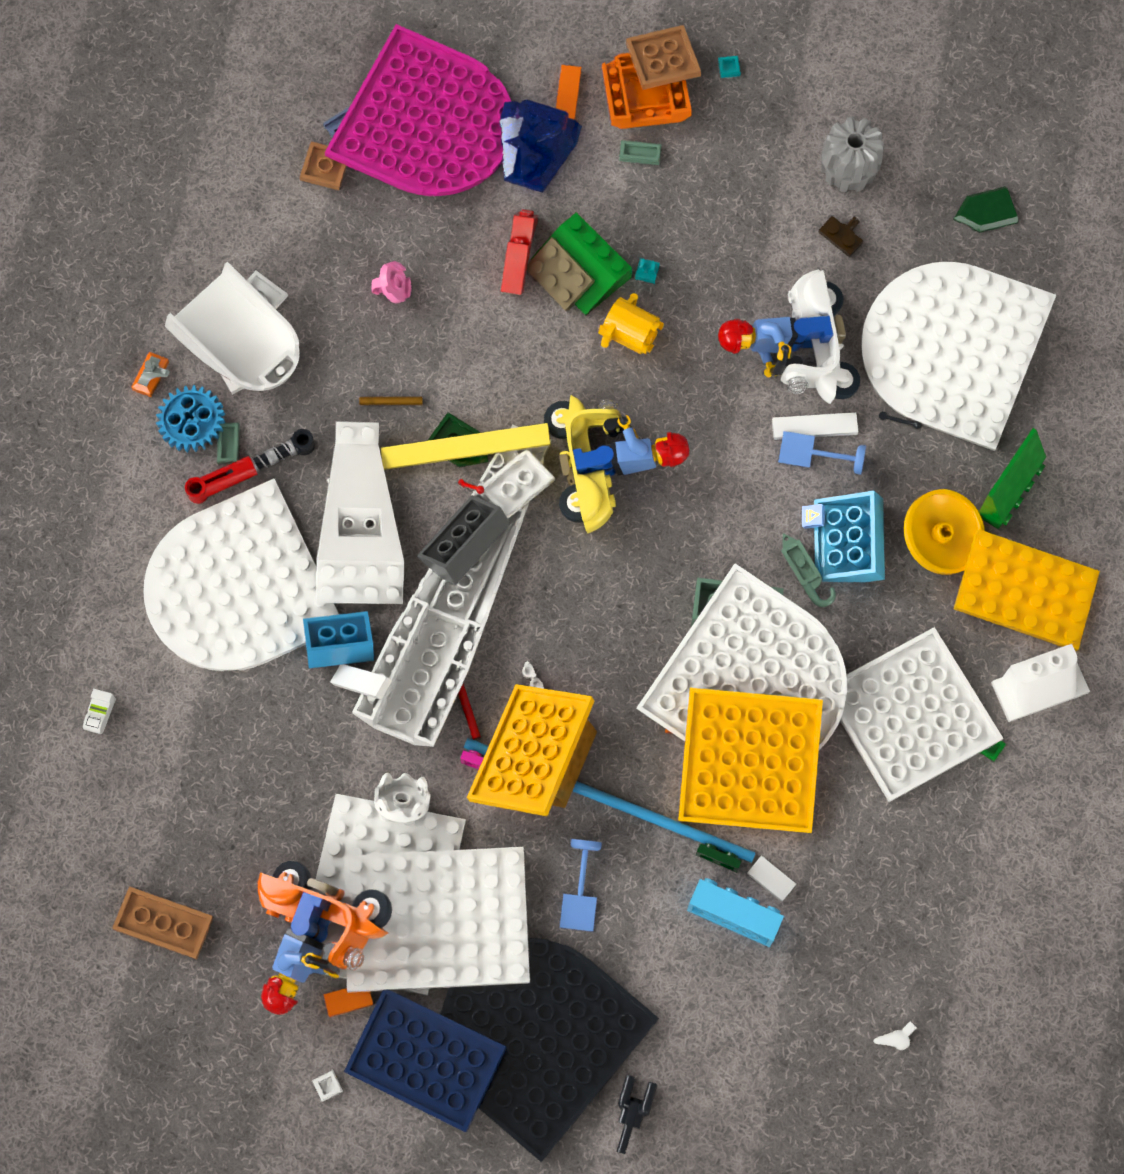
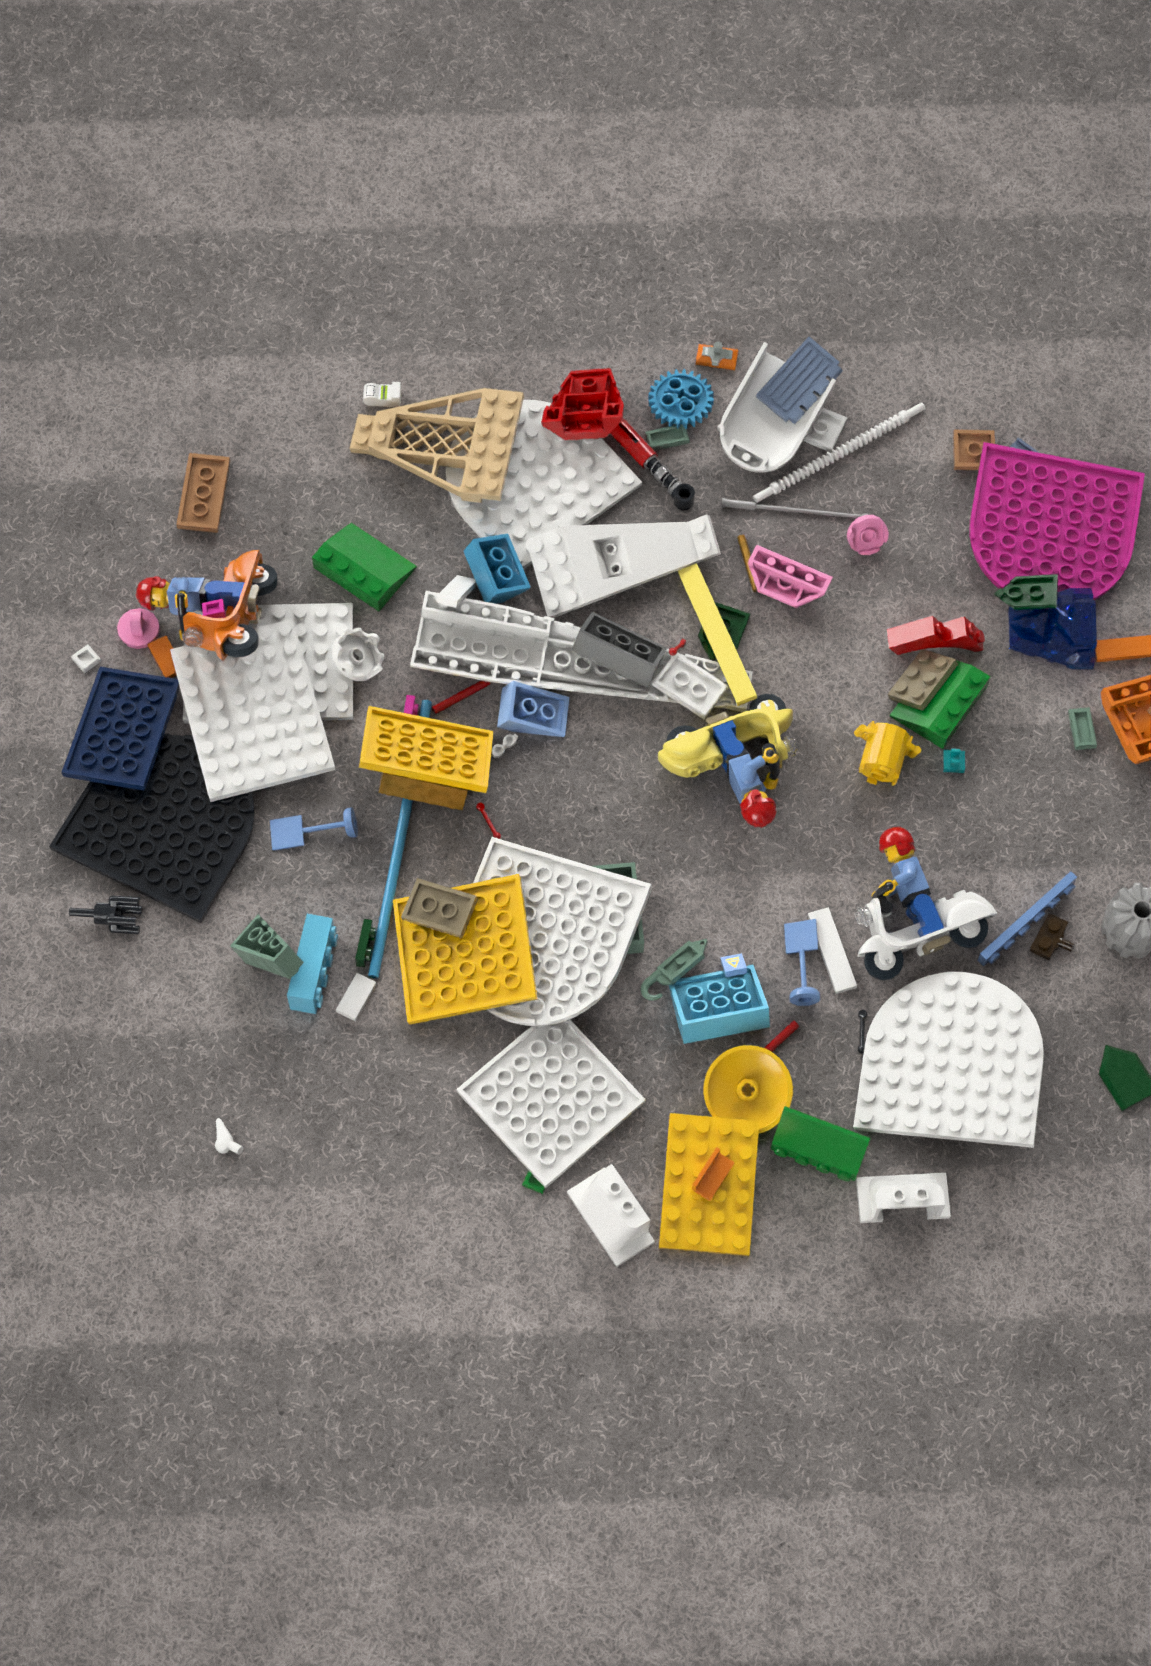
camera: 75 degrees right, 5 degrees down
(178, 507) = (585, 406): none -> red wedge
(194, 611) = (490, 442): none -> tan wing
(207, 300) = (798, 380): none -> sand blue hinge
(295, 773) = (362, 565): none -> green slope
(306, 1023) = (138, 628): none -> bright pink tile
(314, 354) = (902, 417): none -> white hose
(318, 406) = (752, 506): none -> light grey piece
(329, 929) = (214, 609): none -> dark pink plate
(425, 366) = (786, 578): none -> bright pink wedge
(498, 153) = (1030, 592): none -> dark green tile
(503, 641) = (532, 710): none -> light blue slope
(593, 715) = (480, 807): none -> red hinge
(705, 773) = (439, 908): none -> dark tan plate
(712, 954) = (266, 949): none -> sand green wedge
(819, 244) = (1021, 925): none -> medium blue plate
(893, 494) = (782, 1036): none -> red bar
(1025, 582) = (712, 1175): none -> orange panel
(1071, 423) = (902, 1192): none -> white windscreen

